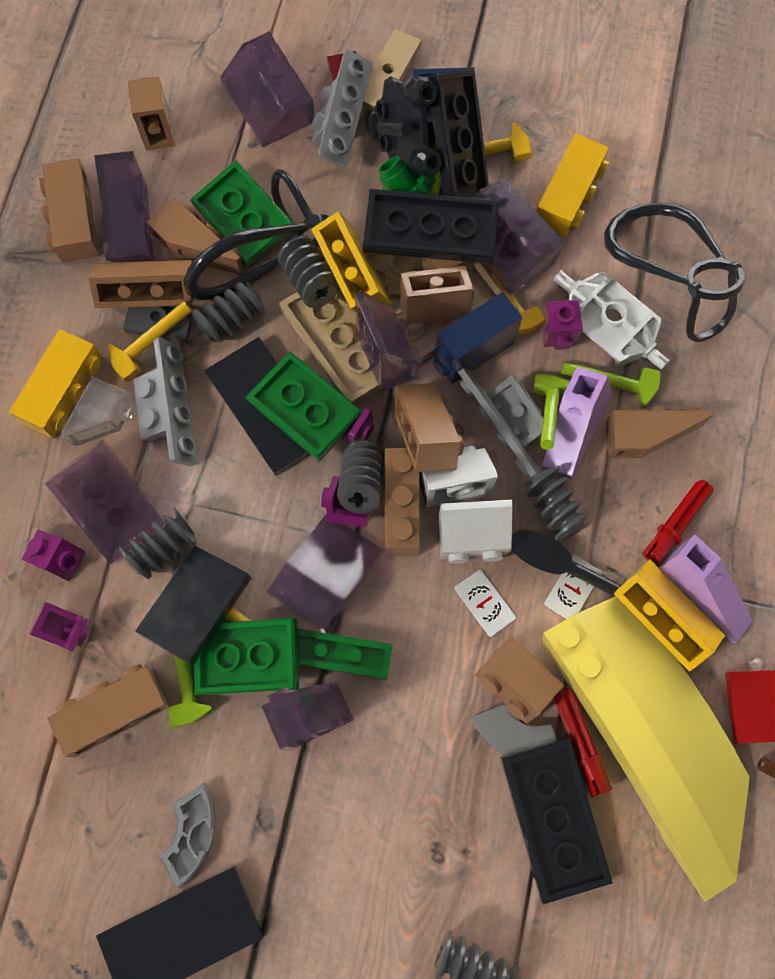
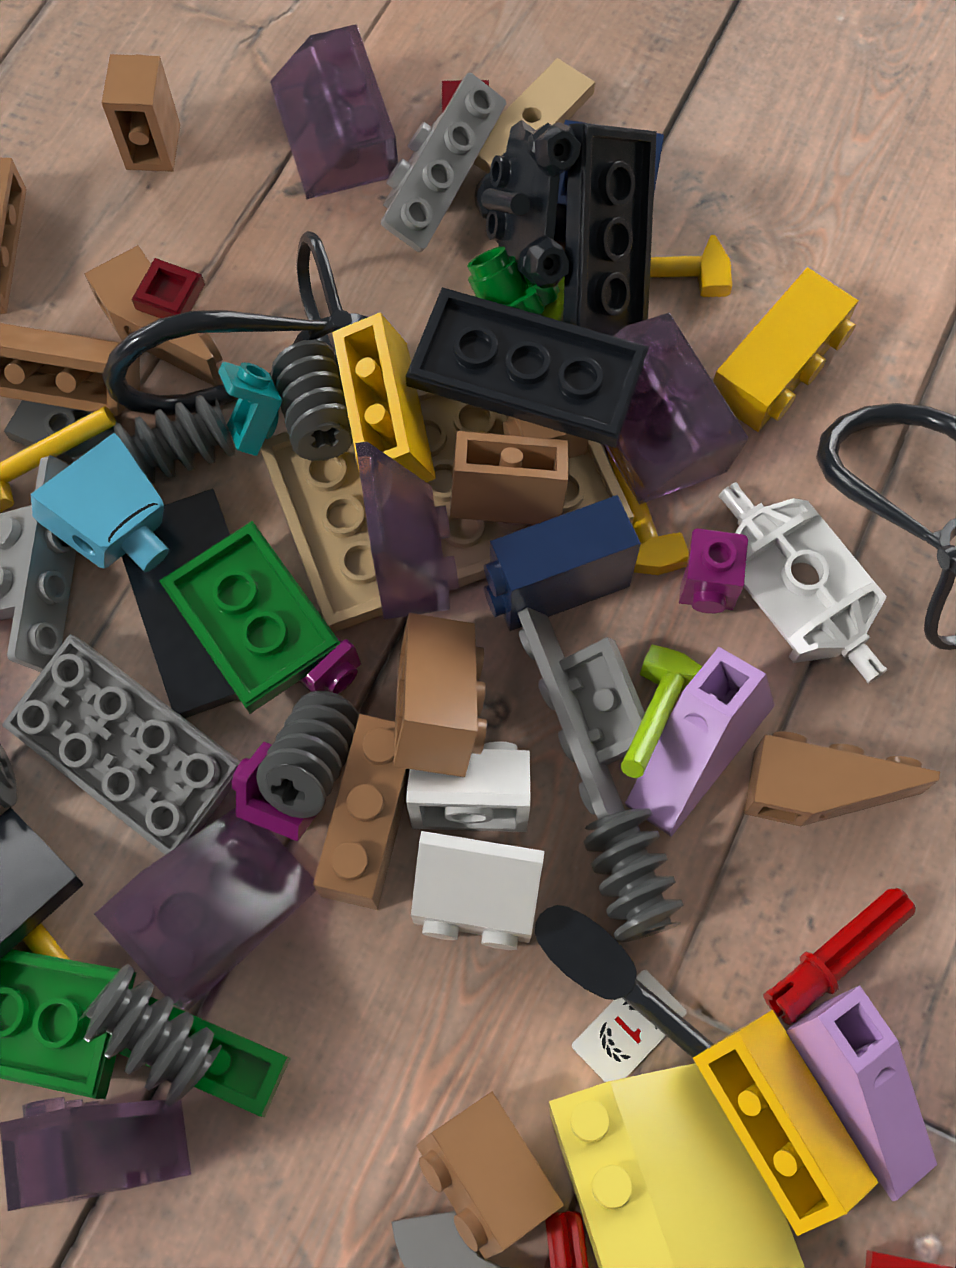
camera: 15 degrees right, 5 degrees down
(124, 208) = (58, 240): clear purple wedge -> none
(202, 223) = (167, 290): none -> dark red tile
(203, 361) = (104, 507): none -> medium azure torso
(238, 203) = (246, 276): green tile -> none
(249, 496) = (123, 746): none -> light grey tile
(275, 282) = (257, 406): none -> teal bracket
(319, 646) = (150, 1035): none -> dark grey piece
(485, 603) = (470, 1019): white sticker -> none
(645, 386) = (834, 706): lime piece -> none

